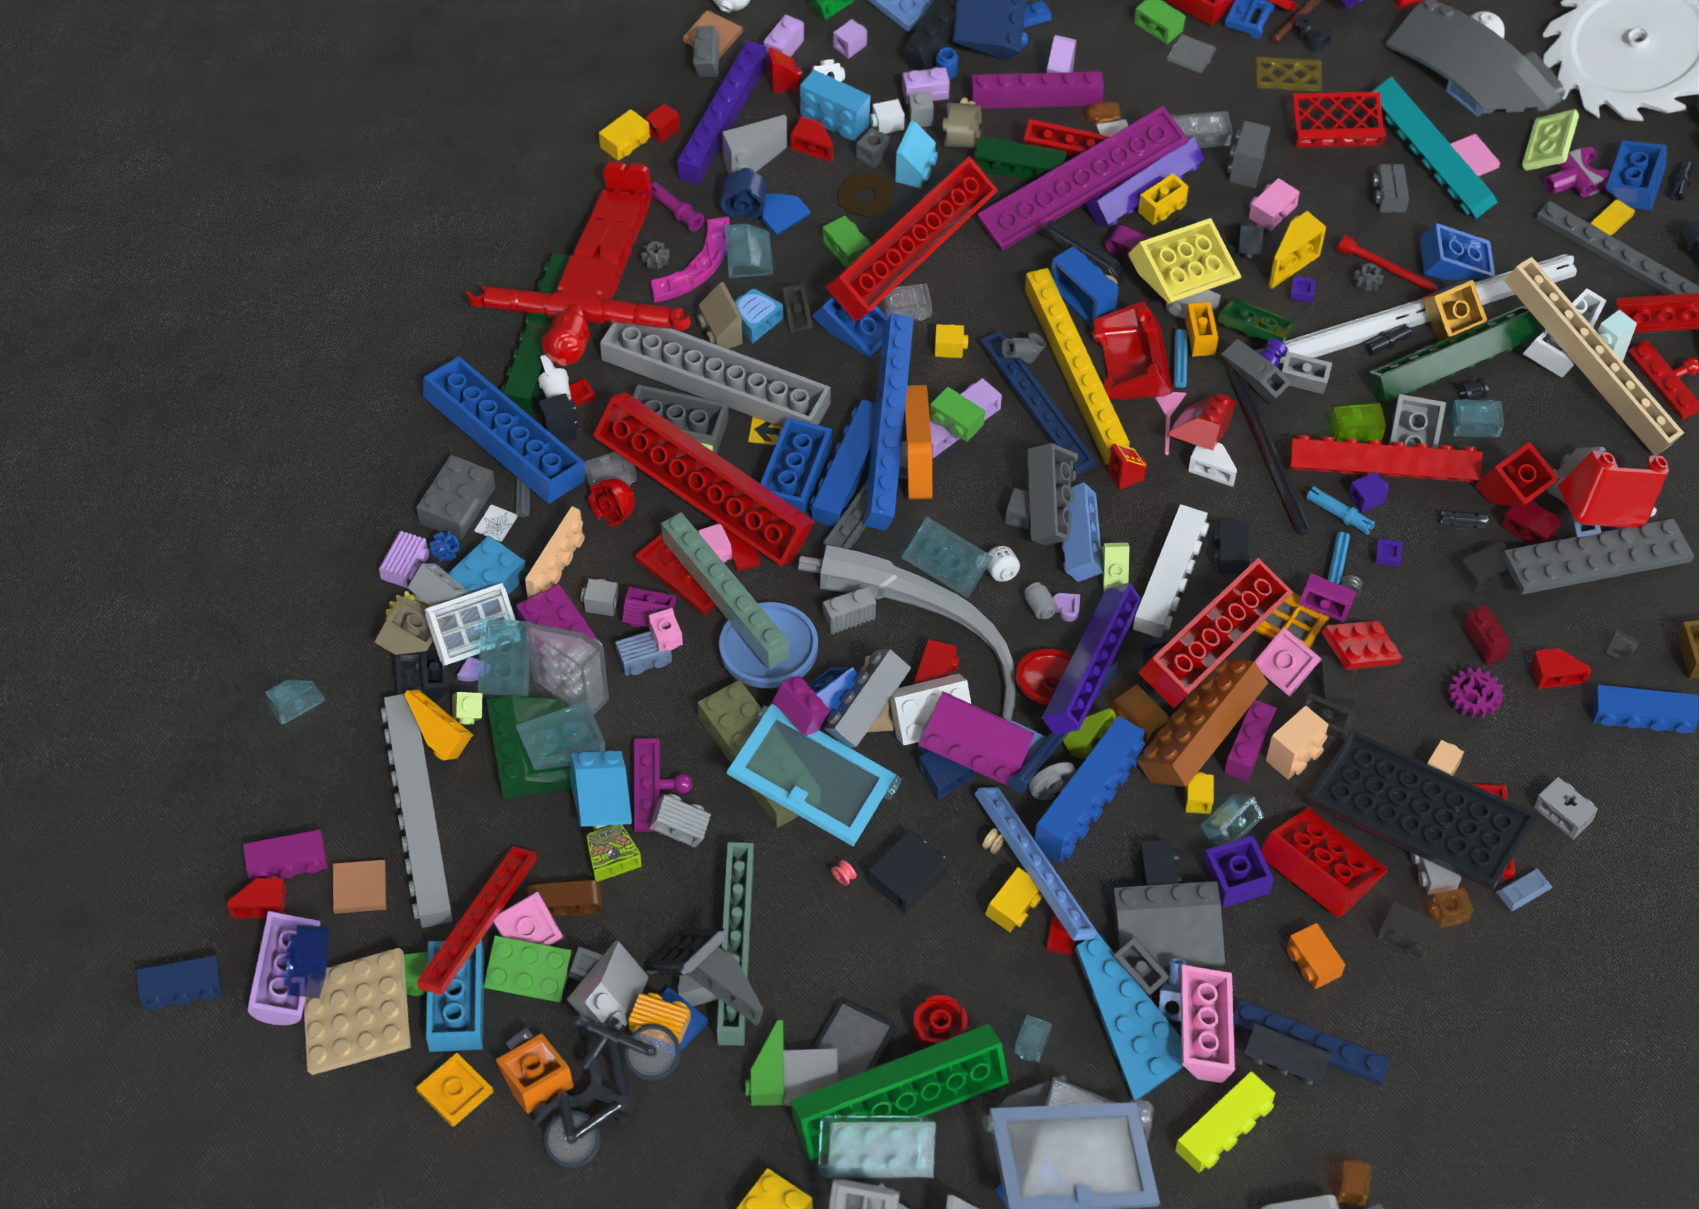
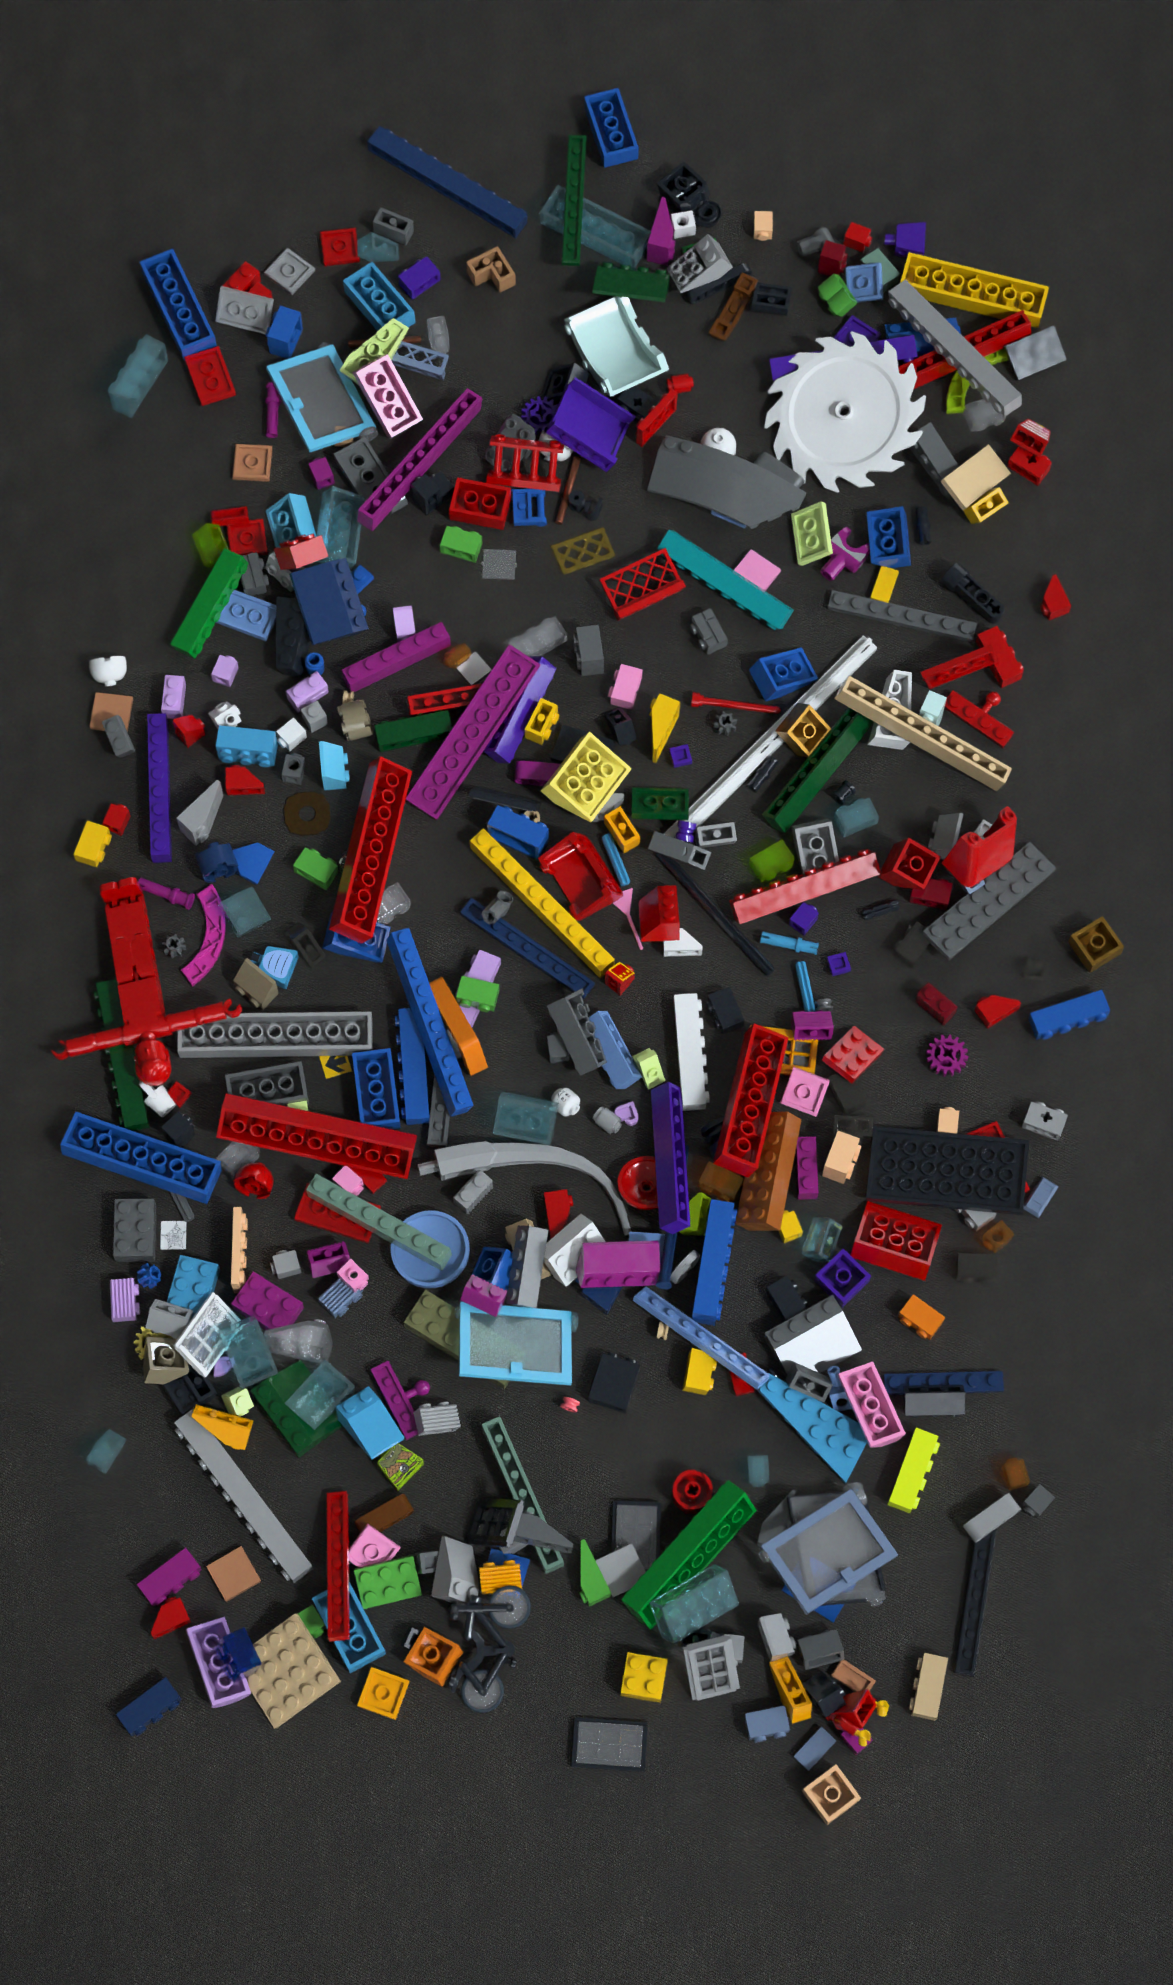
camera: 25 degrees left, 15 degrees up
(950, 341) = (437, 923): yellow brick -> none

